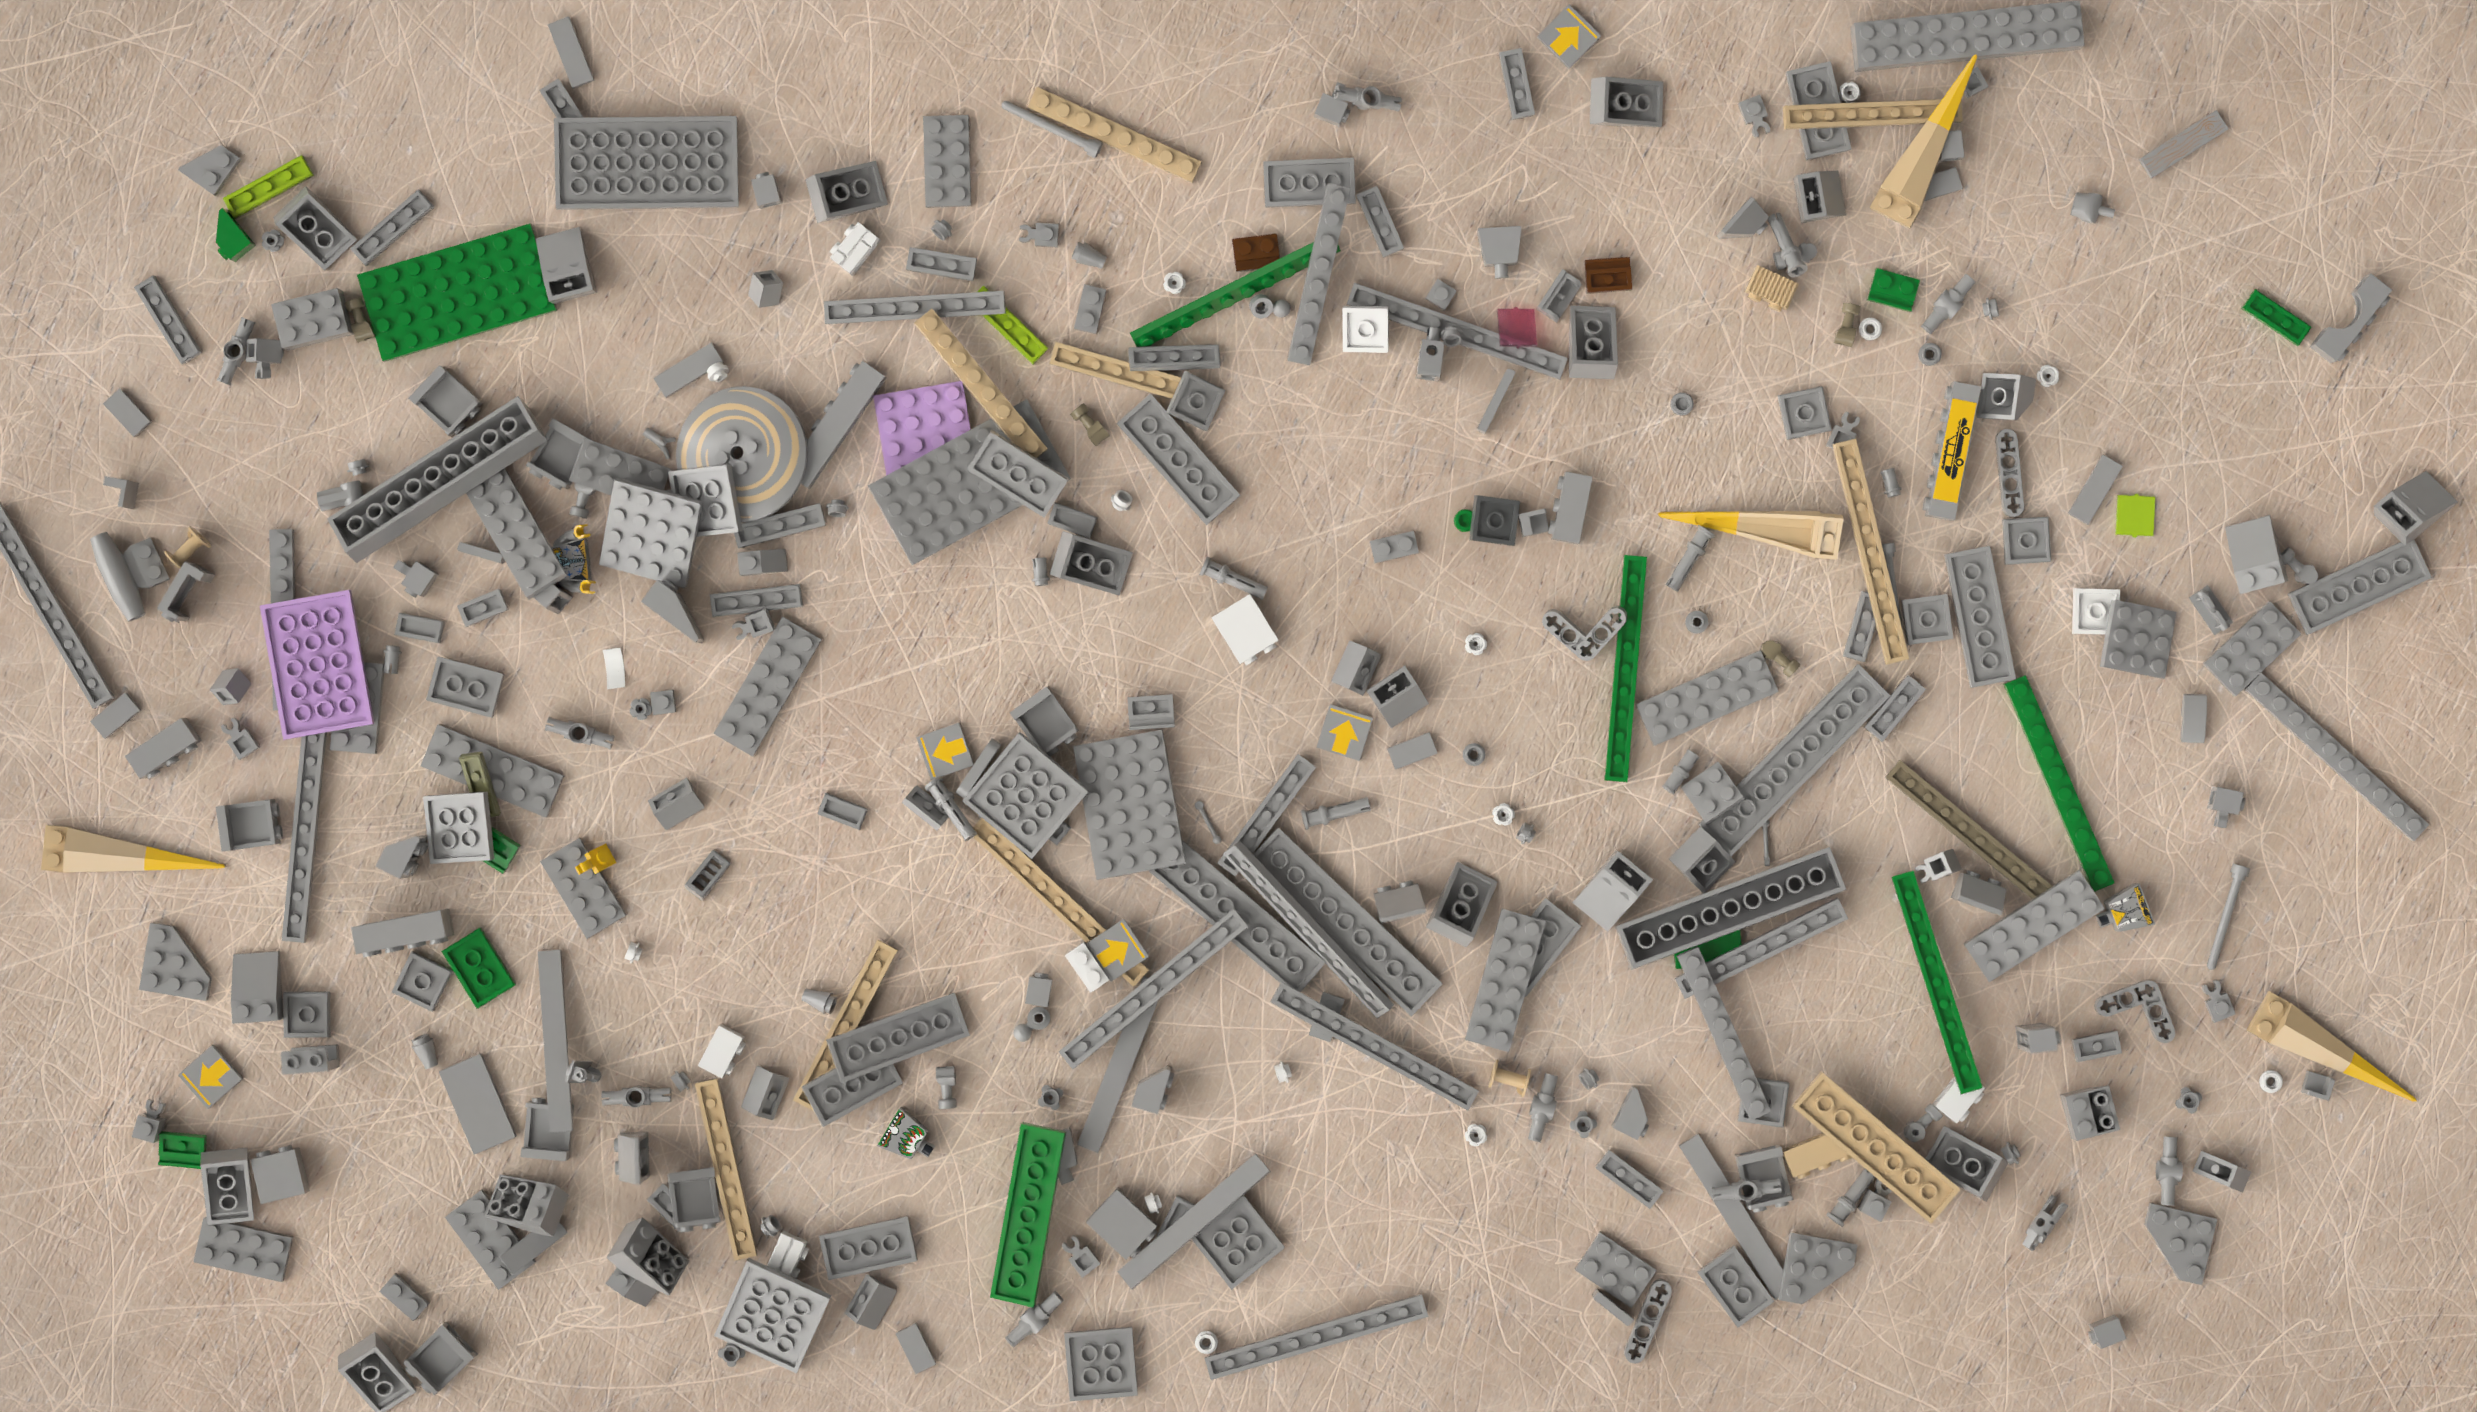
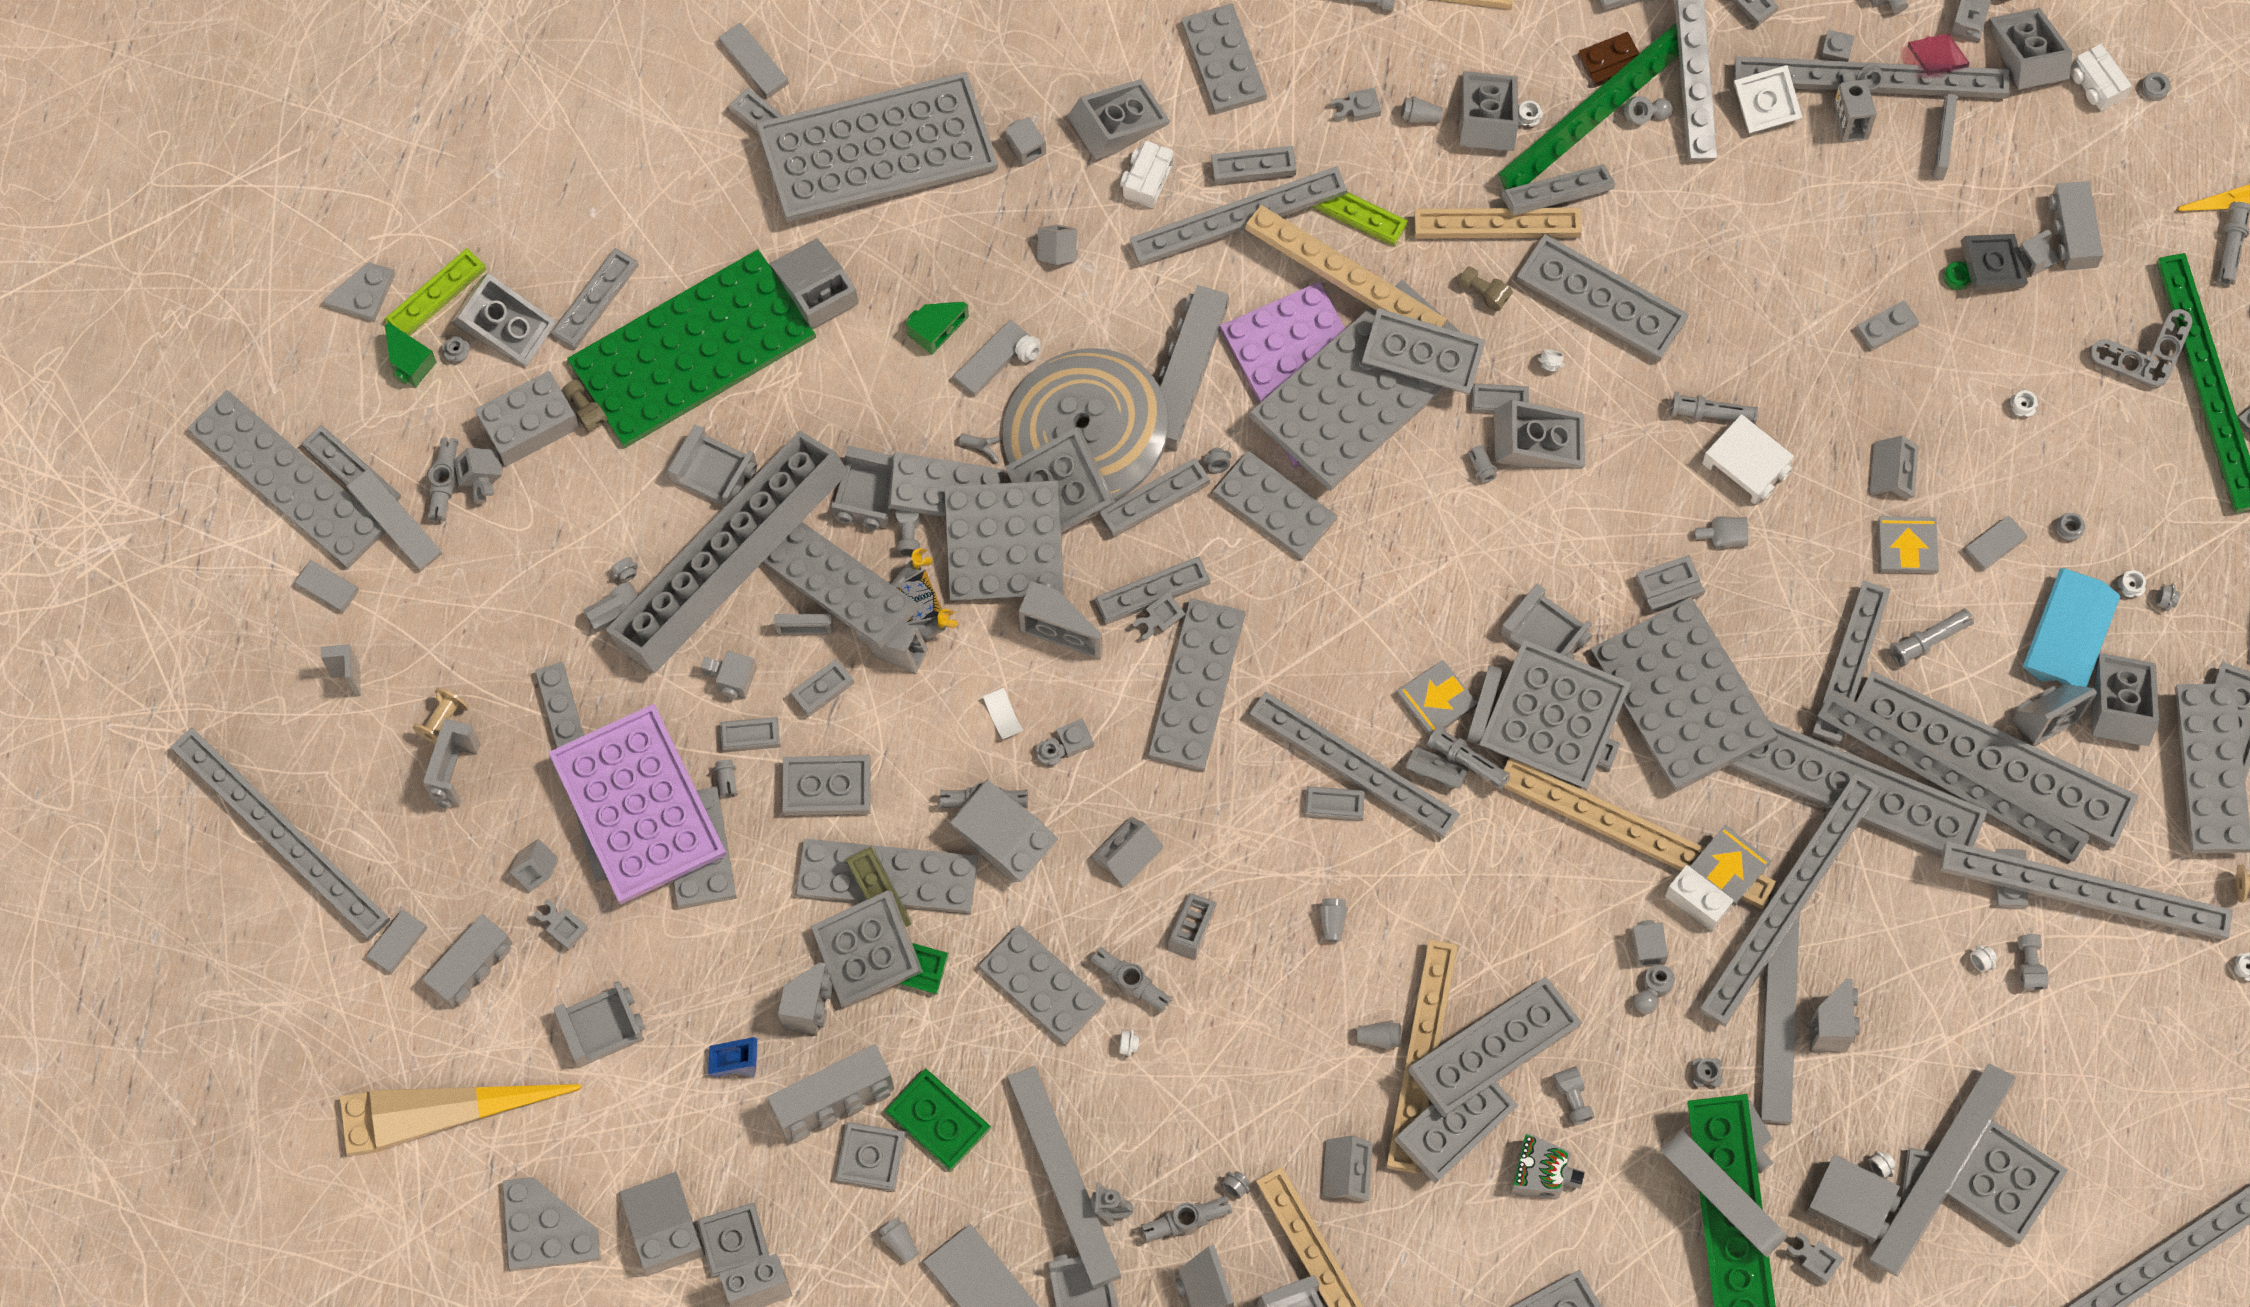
camera: 15 degrees left, 20 degrees down
(116, 313) = (286, 479): none -> light grey plate
(127, 572) = (370, 767): light grey plate -> none
(190, 374) = (394, 520): none -> light grey tile
(304, 838) = (673, 1021): light grey plate -> none
(339, 881) = (733, 1058): none -> blue slope
(584, 767) = (1003, 831): none -> light grey slope
(597, 860) = (1050, 941): yellow plate -> none
(641, 896) = (1142, 989): none -> light grey pin
(650, 330) = (936, 323): none -> green slope
(722, 1051) = (1277, 1131): white brick -> none
(762, 562) = (1145, 543): light grey slope -> none
(813, 899) = (1333, 918): none -> light grey cone
(865, 786) = (1354, 765): none -> light grey plate
(870, 558) = (1275, 505): none -> light grey plate
(941, 229) = (1241, 129): light grey plate -> none
(1023, 1199) = (1723, 1193): none -> light grey beam
(1090, 309) = (1441, 168): light grey plate -> none
(1142, 271) = (1489, 111): none -> light grey slope
(1195, 401) = (1599, 228): light grey tile -> none
(1199, 806) = (1765, 677): light grey hinge -> none
(1208, 682) = (1725, 532): none -> light grey piece
(1314, 1092) = (2032, 974): none -> light grey leg
(1397, 696) = (1956, 482): light grey slope -> none
(1442, 839) = (2071, 629): none -> medium azure slope
(1638, 386) = (2100, 78): none -> white brick

